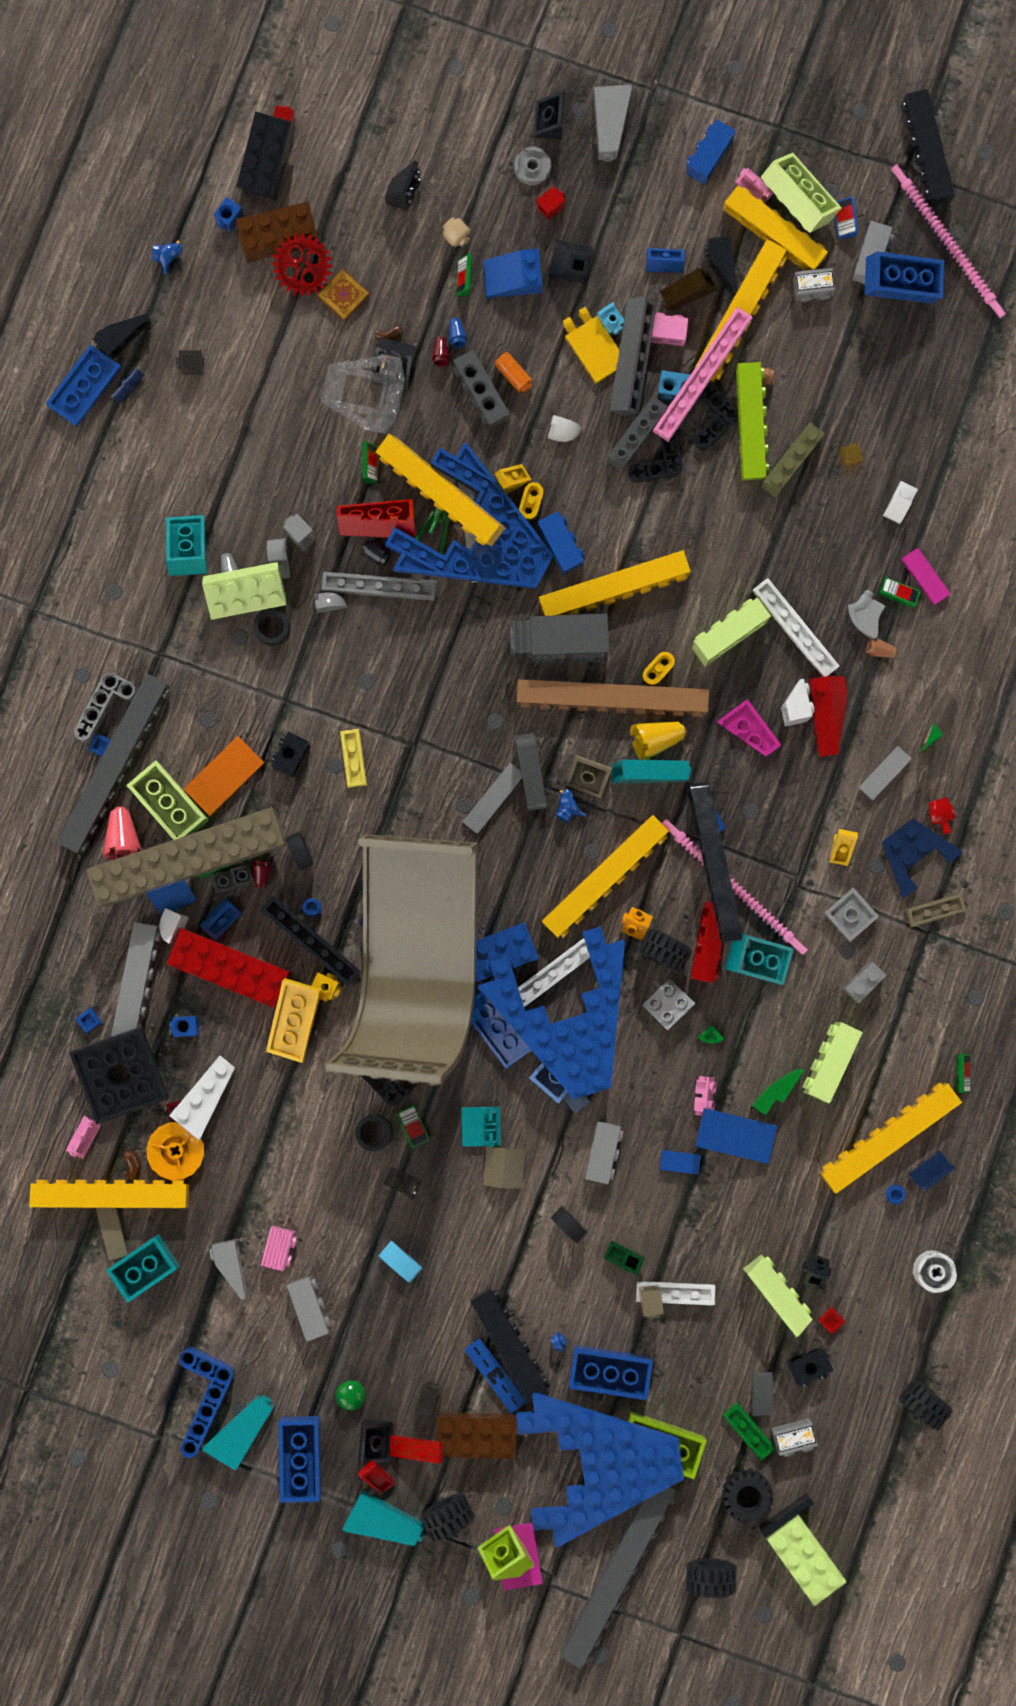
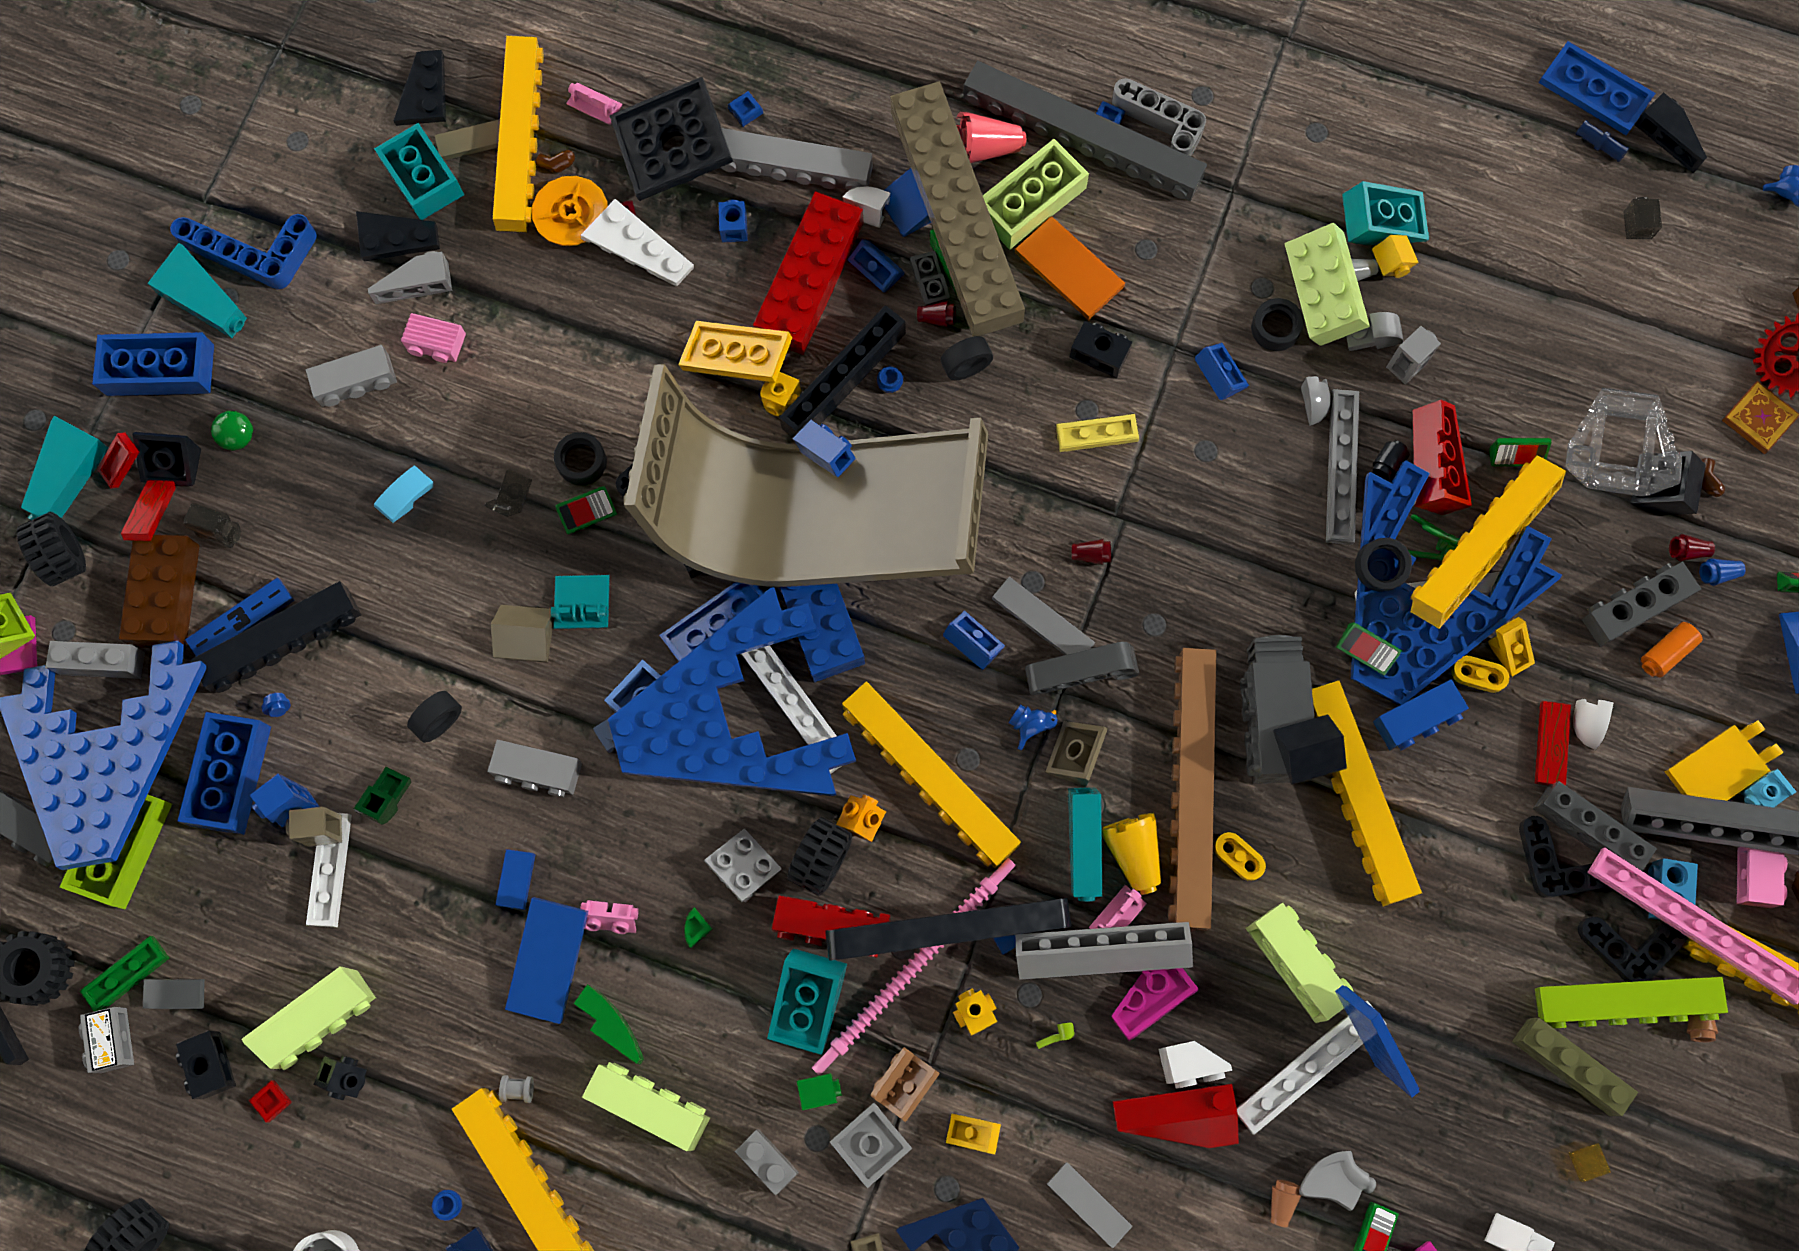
camera: 90 degrees right, 10 degrees down
(69, 1271) = (424, 91): none -> black wing
(193, 1286) = (394, 236): none -> black wing
(220, 540) = (1395, 256): none -> yellow brick
(306, 668) = (1221, 371): none -> blue slope
(372, 952) = (824, 447): none -> brick
(444, 762) = (1092, 551): none -> dark red cone
(474, 562) = (1402, 555): none -> black tyre
(507, 847) = (973, 640): none -> blue slope
(517, 576) = (1368, 648): none -> slope
(527, 1477) = (95, 659): none -> light grey brick
(578, 456) = (1552, 743): none -> red tile
(591, 618) = (1311, 748): none -> black slope
(634, 1324) = (278, 797): none -> blue brick
(698, 751) = (1120, 910): none -> bright pink hinge
(725, 759) = (1104, 950): none -> light grey brick
(771, 843) = (978, 1022): none -> yellow brick
(777, 787) = (1065, 1031): none -> lime hand
(783, 584) = (1377, 1040): none -> blue tile
(812, 892) = (904, 1084): none -> medium nougat bracket
(818, 949) = (818, 1091): none -> green brick
(820, 1152) = (516, 1089): none -> light grey bush

